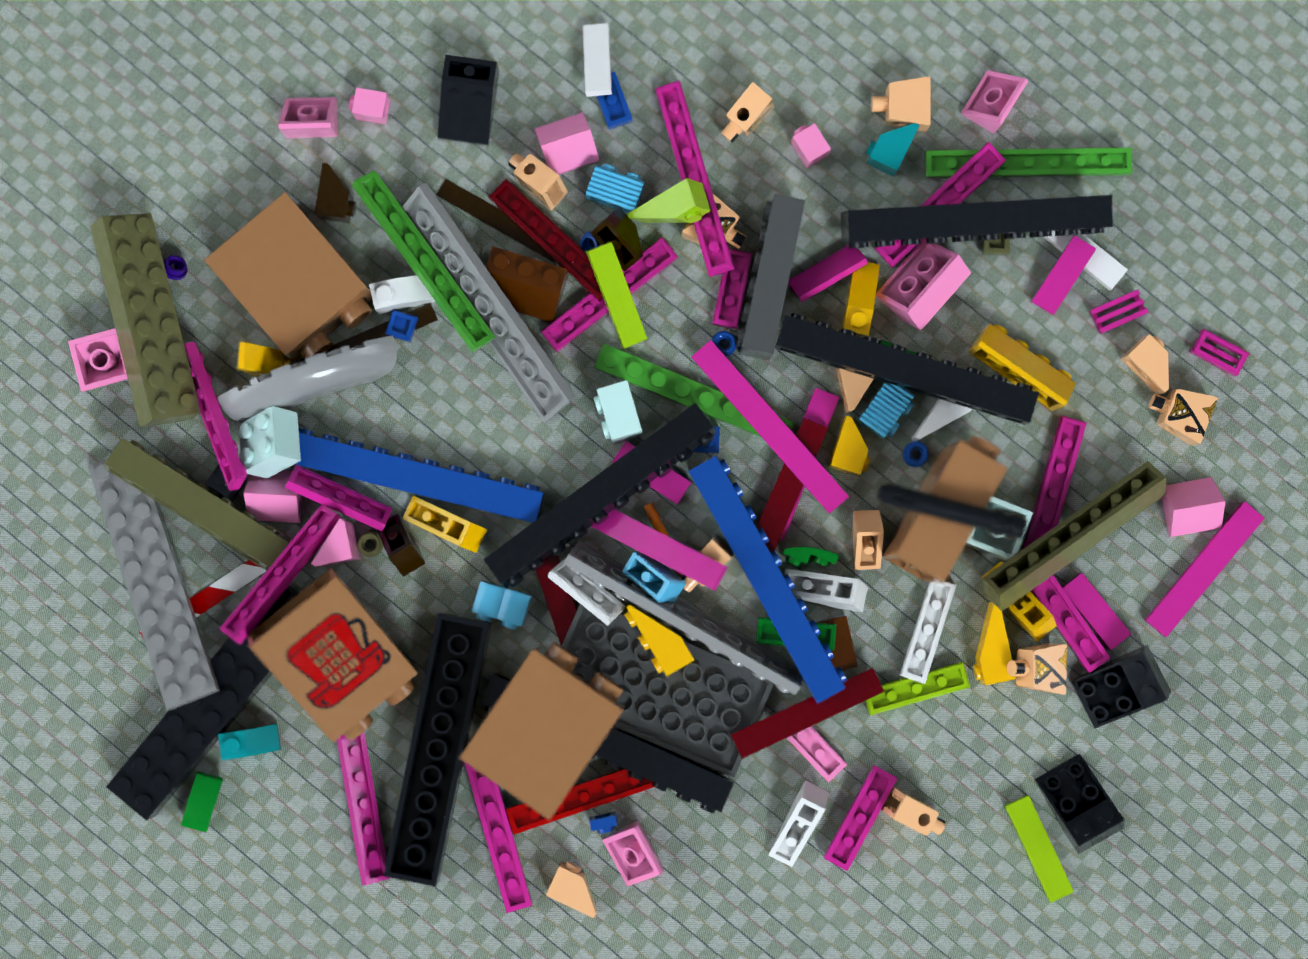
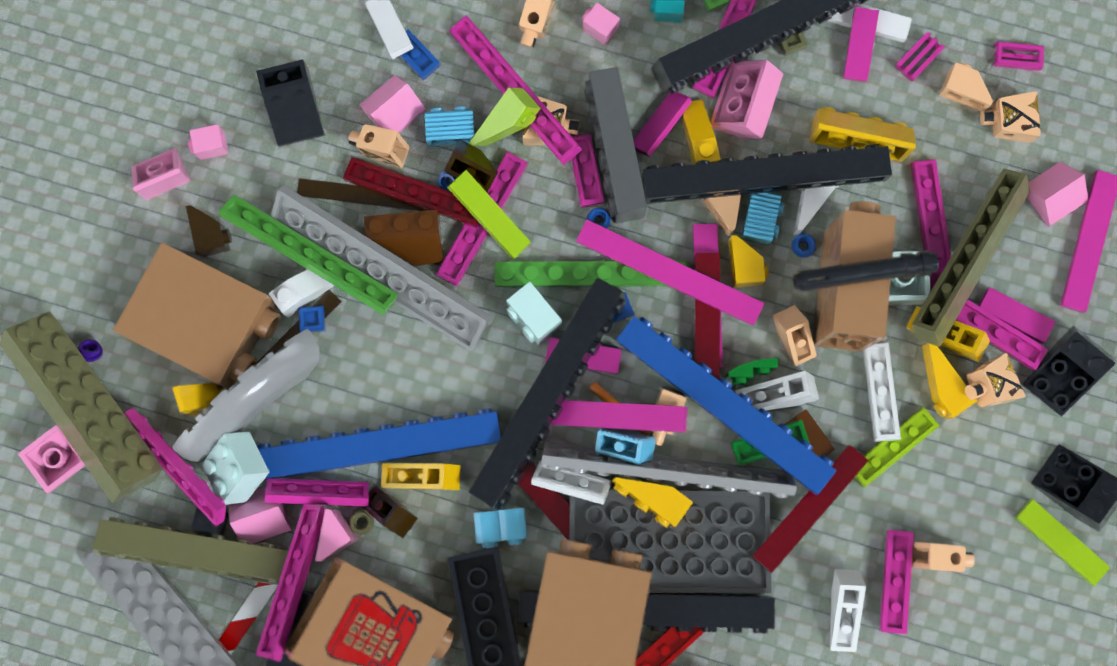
camera: 20 degrees left, 5 degrees down
(818, 753) = (834, 540): bright pink tile -> none

